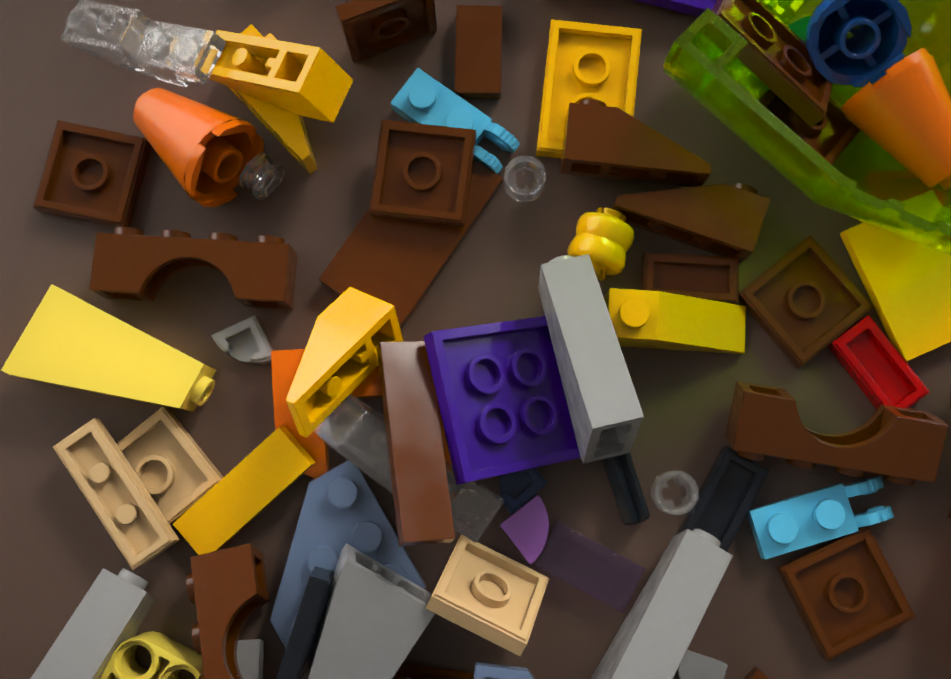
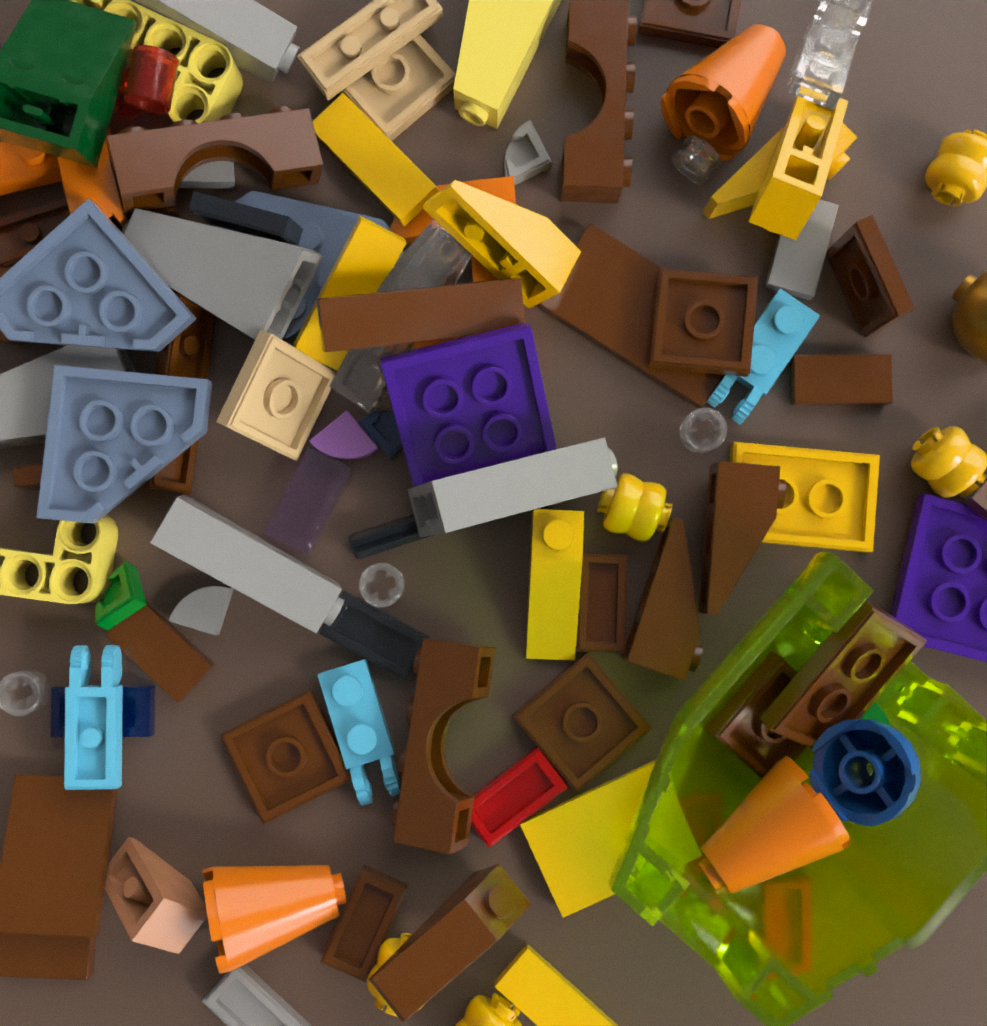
camera: 85 degrees right, 5 degrees up
(370, 511) = (359, 269): none -> yellow tile
(372, 86) = (799, 263): none -> light grey tile

